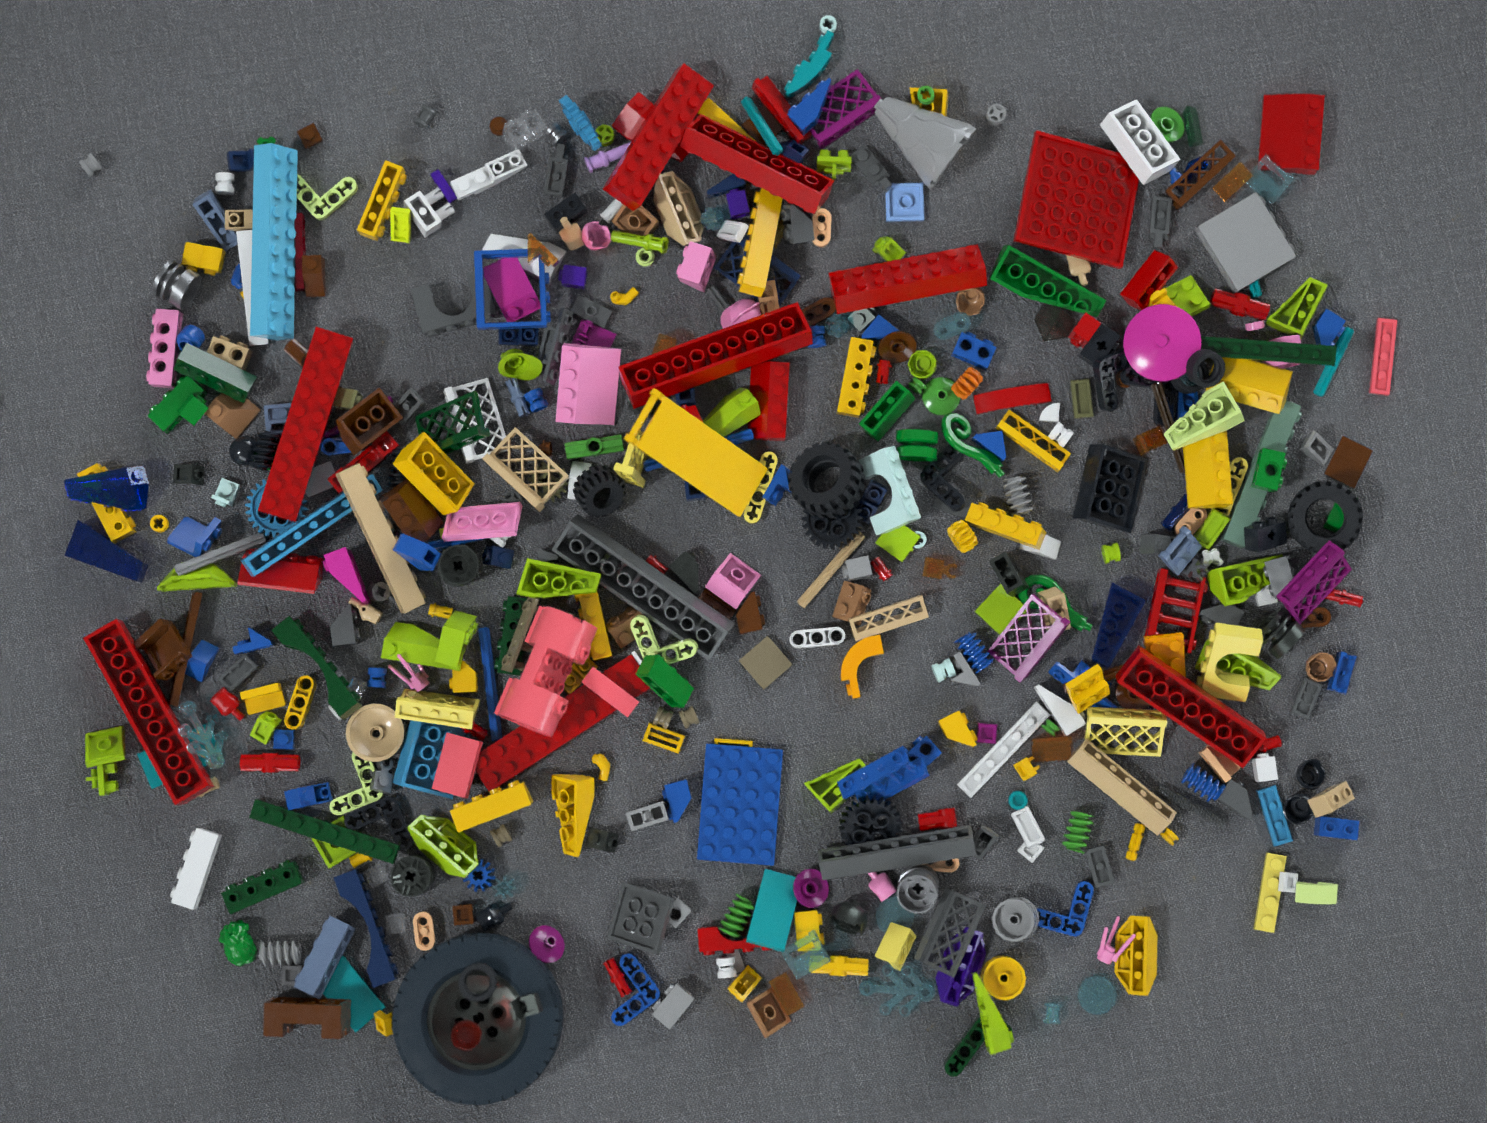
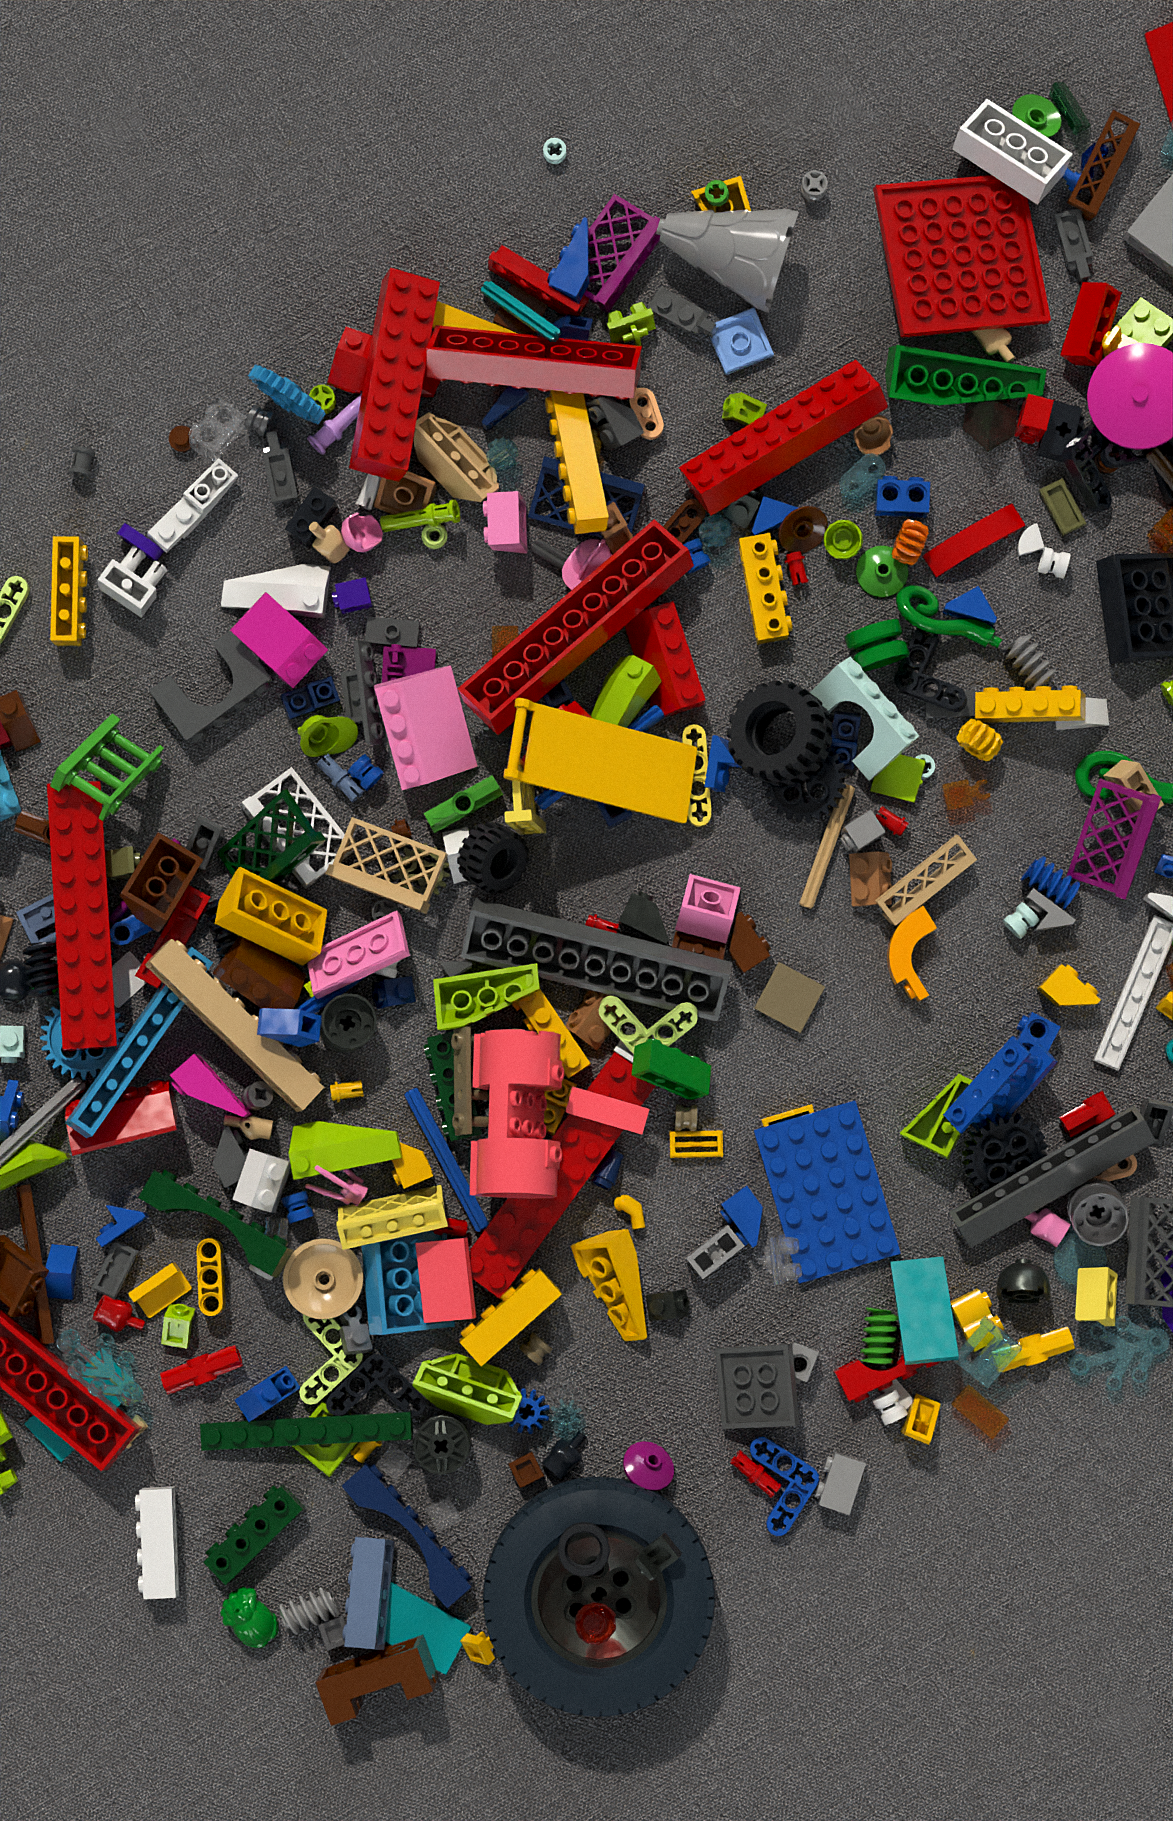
camera: 20 degrees left, 0 degrees up
(284, 739) = (207, 1332): blue plate -> none
(359, 313) = (95, 746): none -> bright green fence
(359, 651) = (262, 1181): none -> white slope
(400, 224) = (104, 612): neon yellow plate -> none
(422, 931) = (483, 1509): light nougat plate -> none
(455, 638) = (381, 1117): lime wedge -> none
(480, 294) = (318, 613): blue window -> none
(536, 248) = (295, 575): clear orange slope -> none
(596, 733) = (607, 1171): none -> dark blue cone
(623, 299) = (427, 600): yellow arm -> none
(688, 717) = (718, 1104): dark tan wheel -> none
(688, 838) = (777, 1258): none -> clear hips
(732, 231) = (535, 460): white tile -> none
(737, 204) = (527, 423): dark purple brick -> none
(768, 1012) = (965, 1444): medium nougat slope -> none
(807, 636) = (856, 937): white beam -> none
(808, 72) = (553, 219): teal slope -> none
(818, 888) = (967, 1259): magenta dish -> none
(887, 411) = (821, 616): green brick -> none
(917, 386) = (846, 569): bright green bush -> none
(986, 733) = (1106, 980): magenta tile -> none
(999, 609) = (1062, 815): lime tile -> none
(1009, 574) = (1057, 765): pearl dark grey brick -> none
(1030, 446) = (1020, 590): yellow fence -> none
(1232, 181) = (1148, 158): clear orange plate -> none

